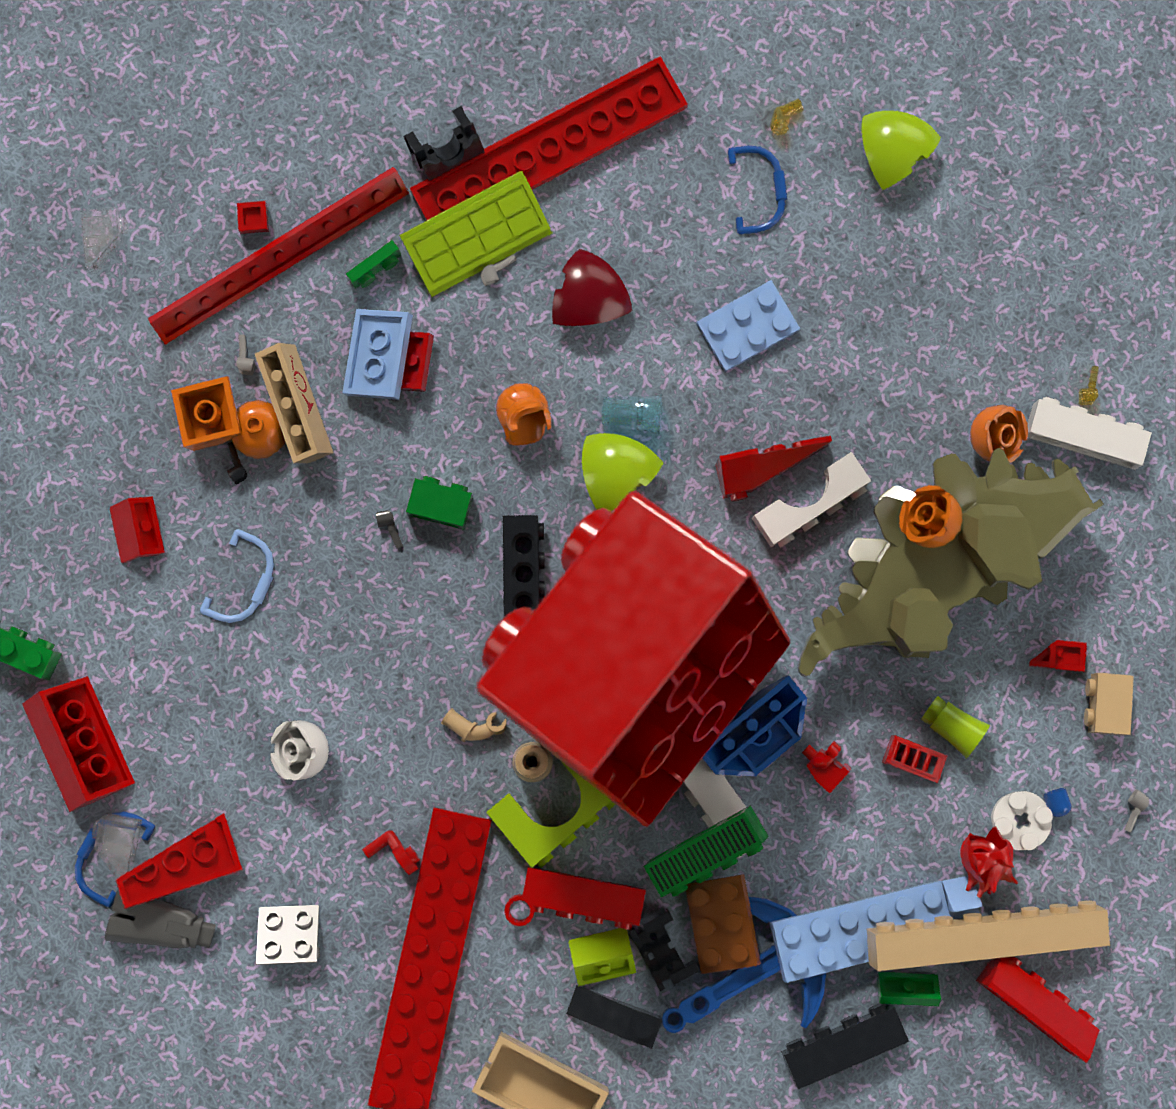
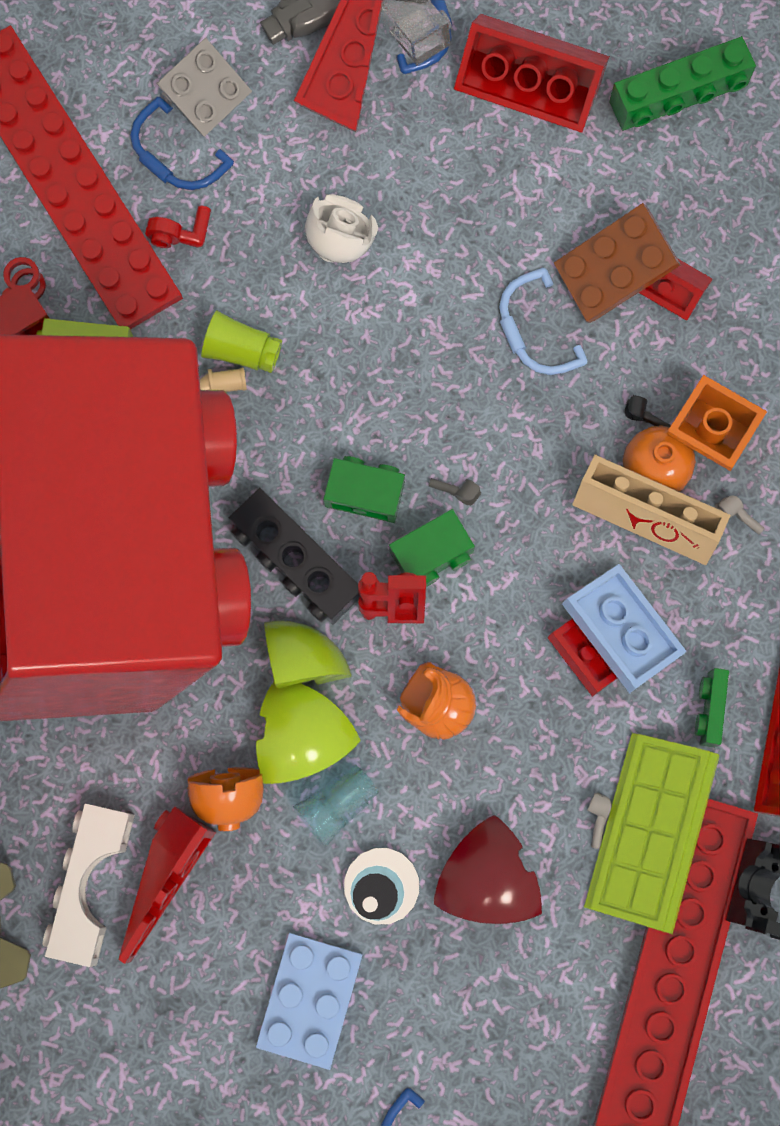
camera: 145 degrees right, 5 degrees down
(159, 566) = (617, 263): none -> dark orange plate
(367, 913) = (158, 167): none -> blue piece
(429, 737) = (240, 344): none -> lime plant
(443, 576) = (364, 489): none -> green brick
(485, 487) = (399, 599): none -> red plate
(568, 506) = (303, 654): none -> lime brick
(651, 347) = (381, 886): none -> tile
(690, 473) = (226, 797): none -> orange cylinder

